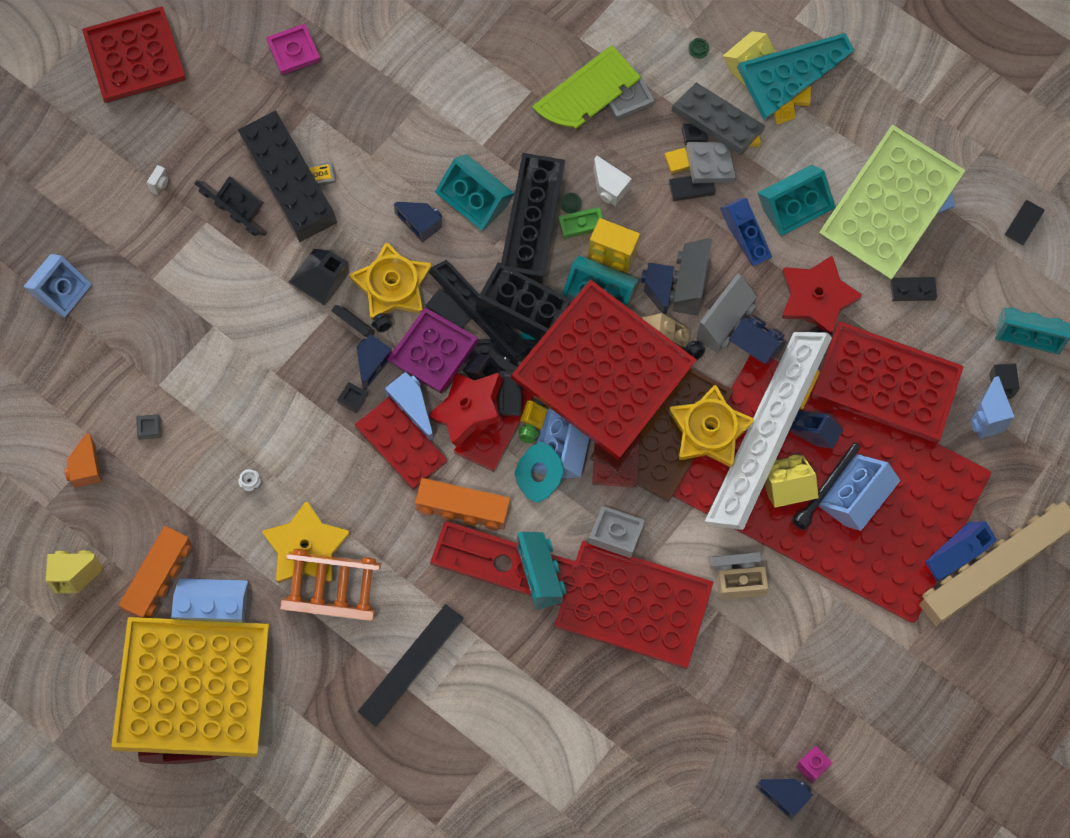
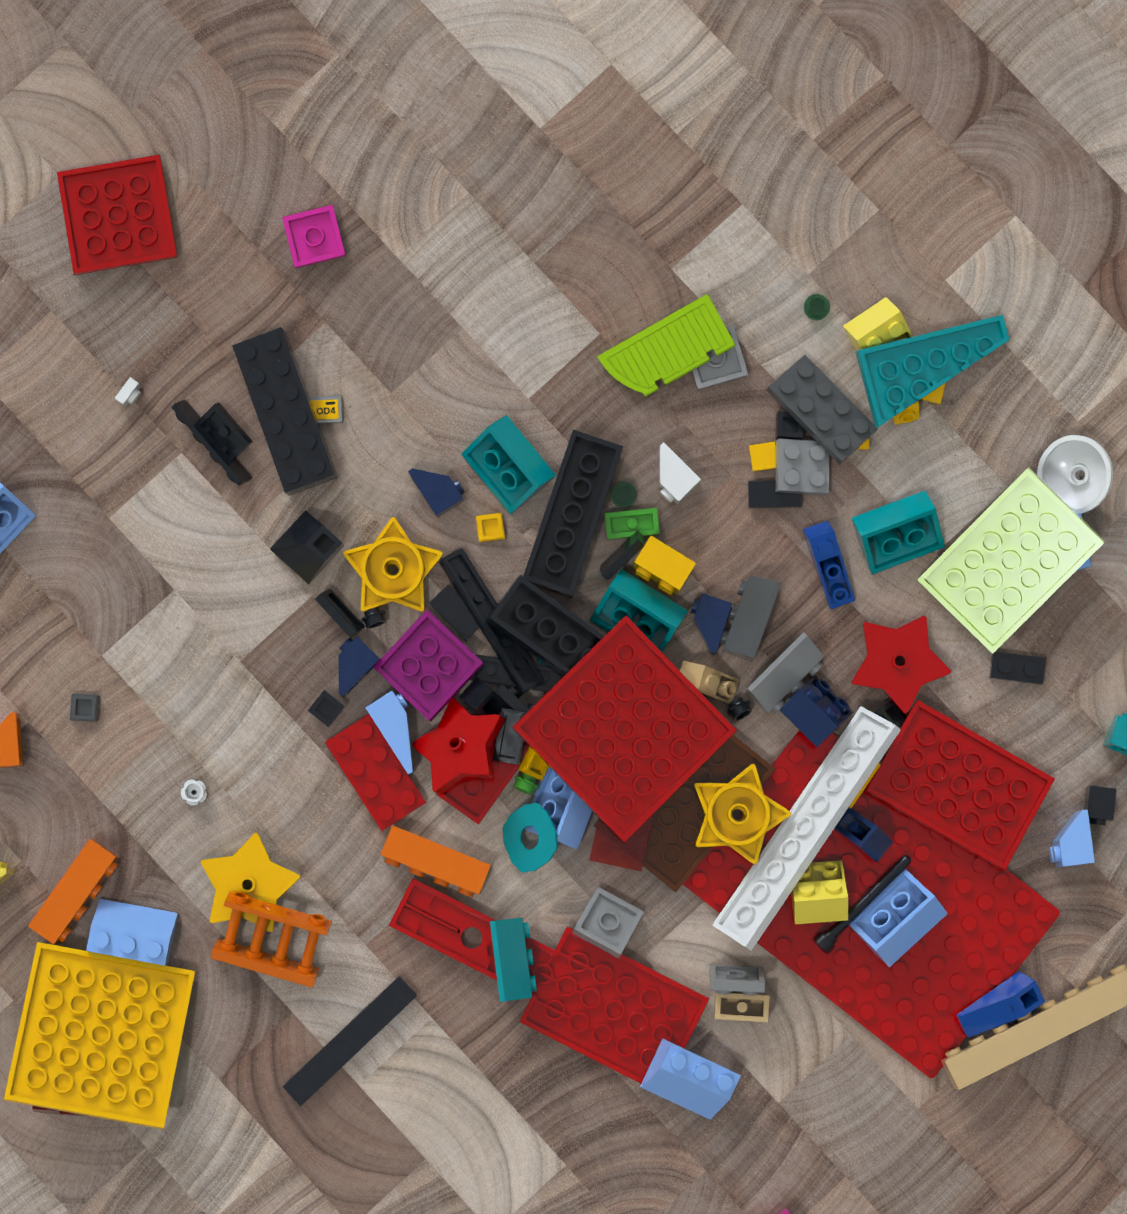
camera: 10 degrees right, 15 degrees up
(467, 242) = (490, 527): none -> yellow tile
(578, 244) = (622, 555): none -> black tile
(710, 649) = (689, 1080): none -> light blue slope
(931, 122) = (1061, 469): none -> white dish

